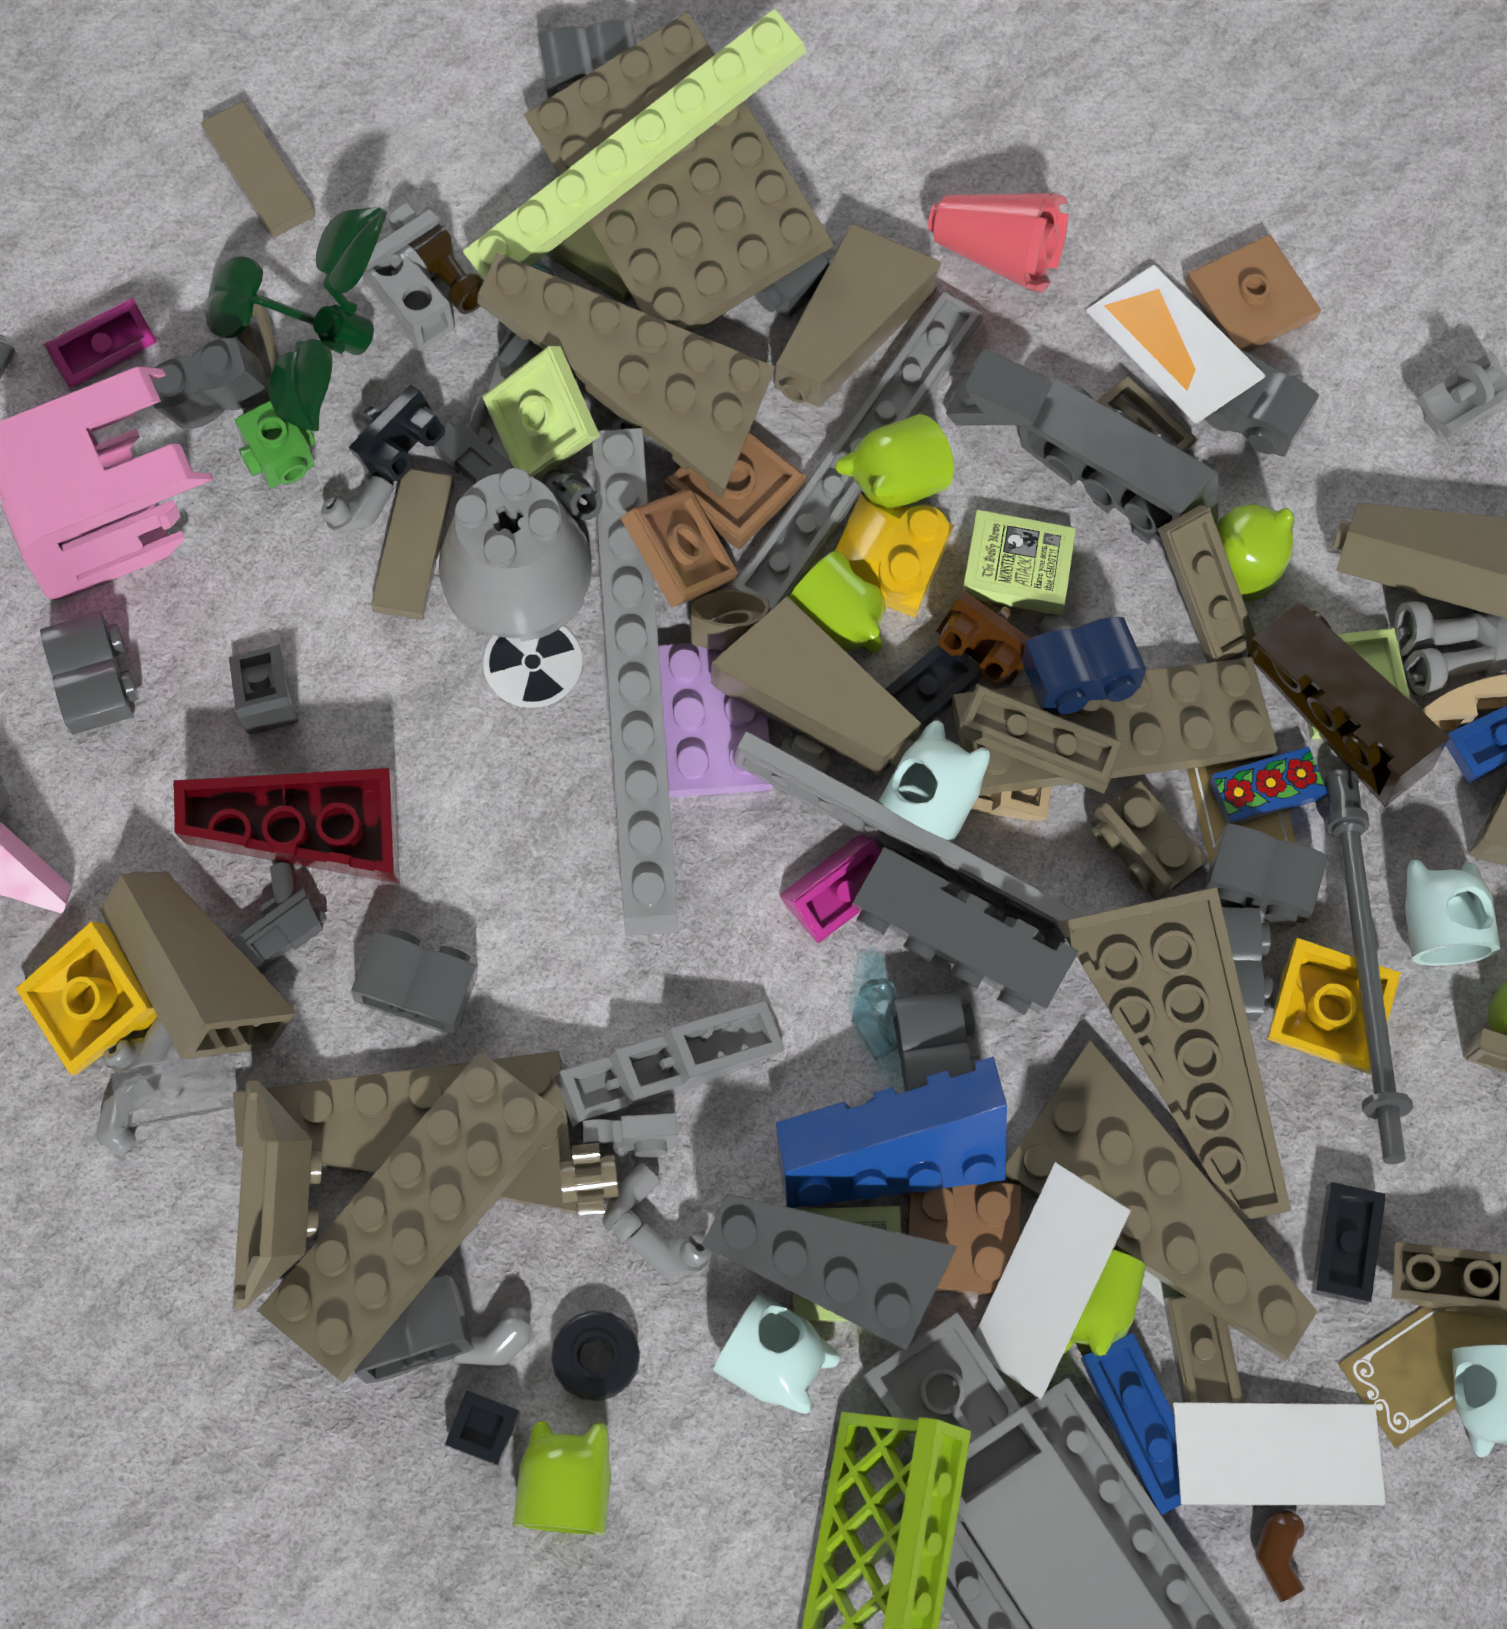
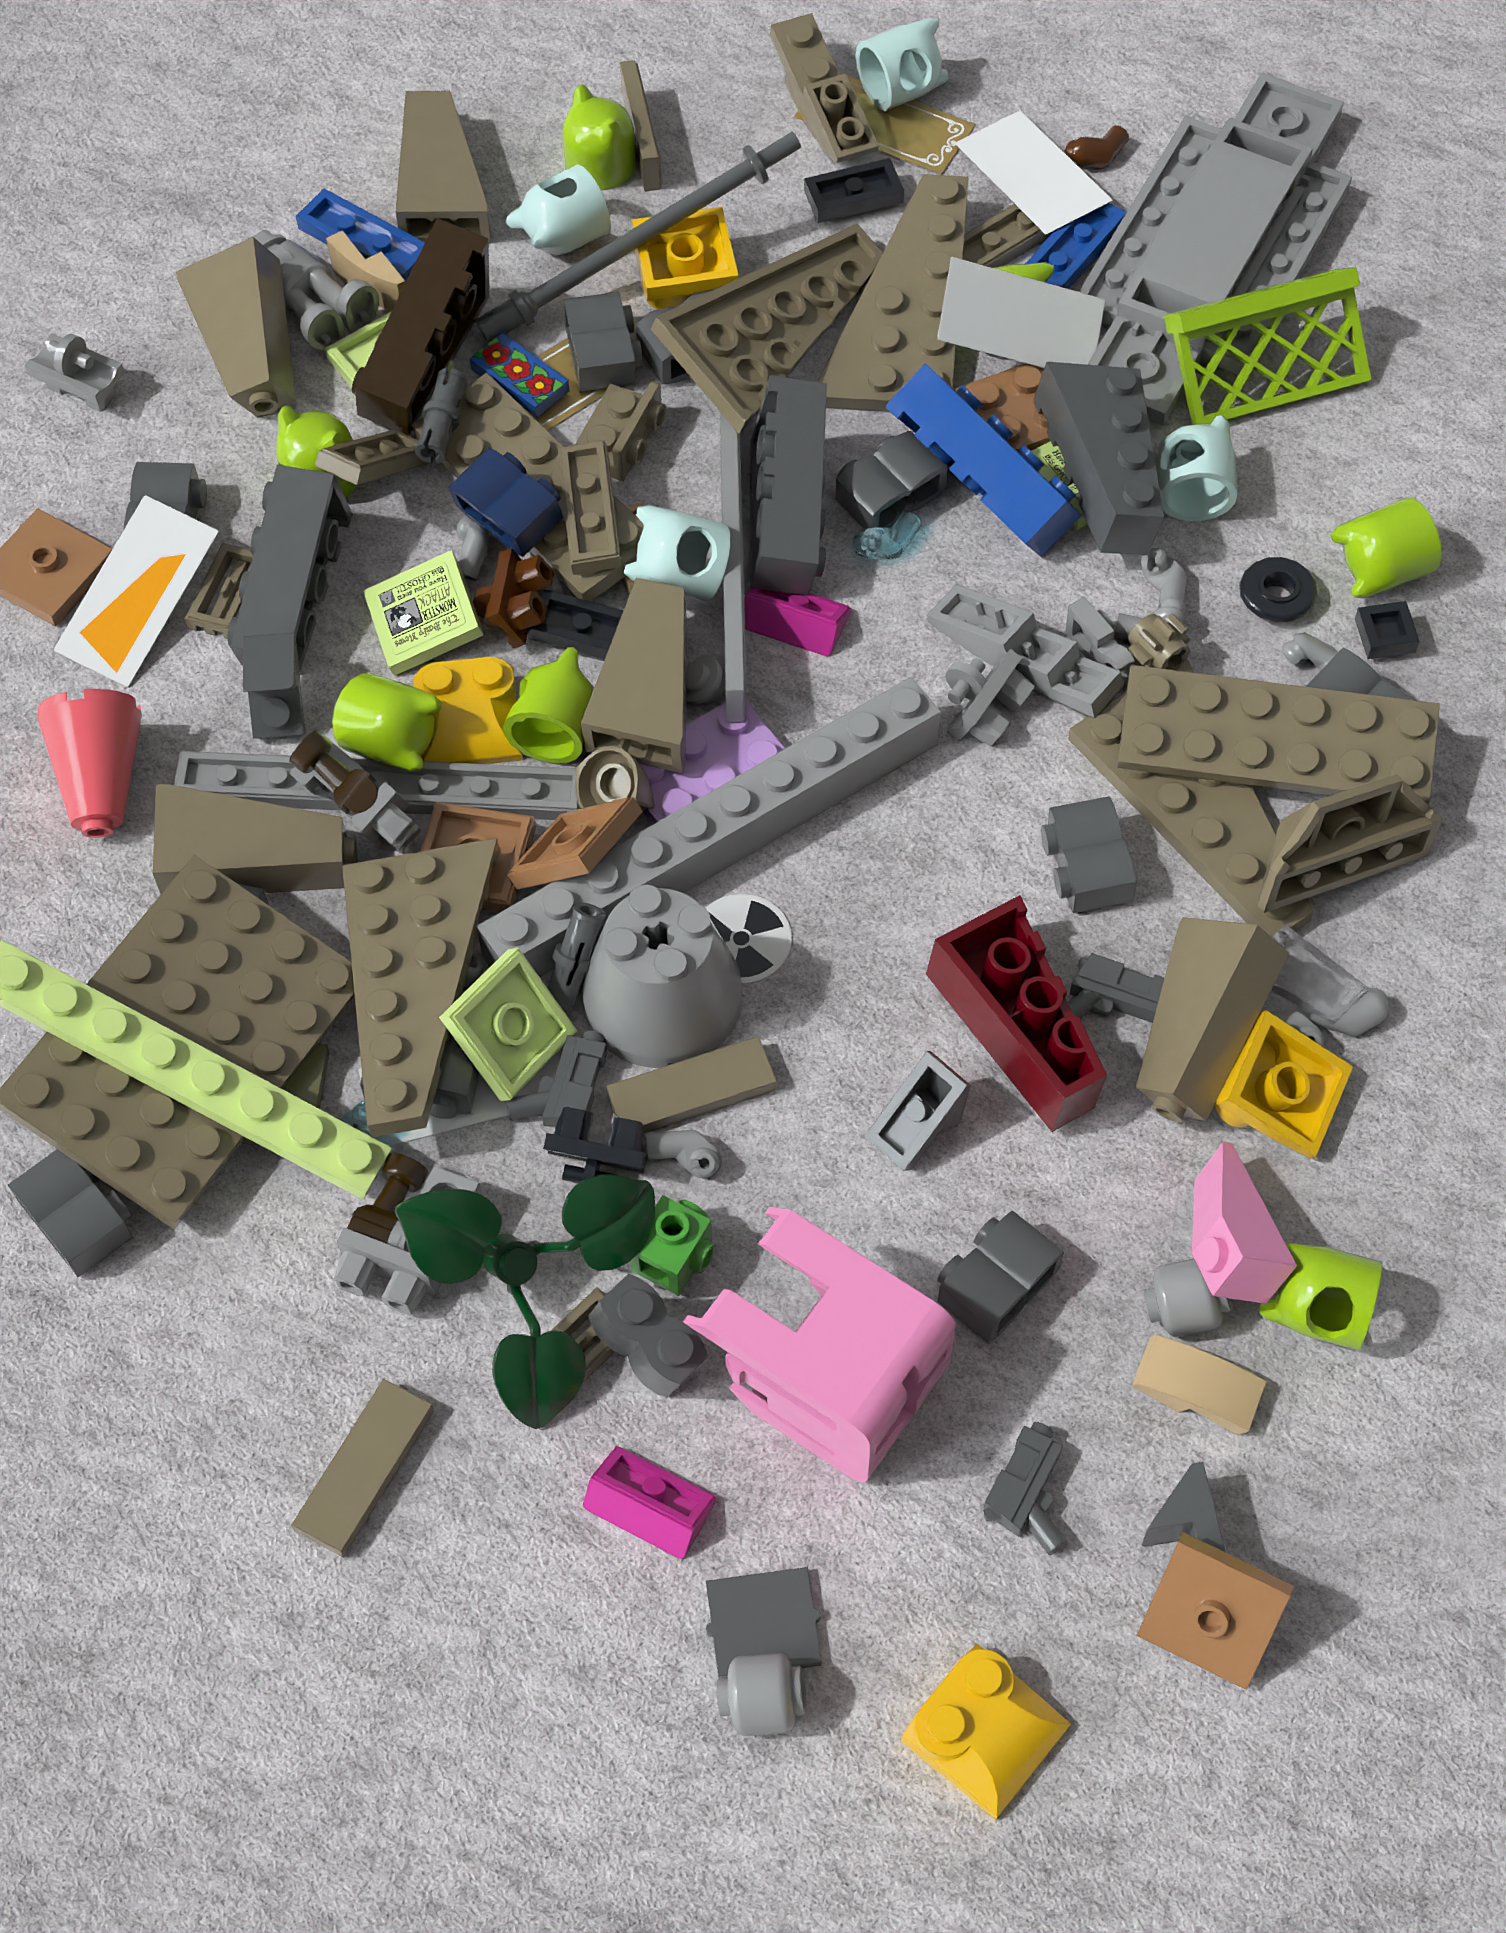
camera: 115 degrees left, 10 degrees down
(624, 975) = (1001, 683): none -> light grey hips
(833, 402) = (372, 807): none -> hips
(1231, 669) = (441, 416): none -> dark grey pin

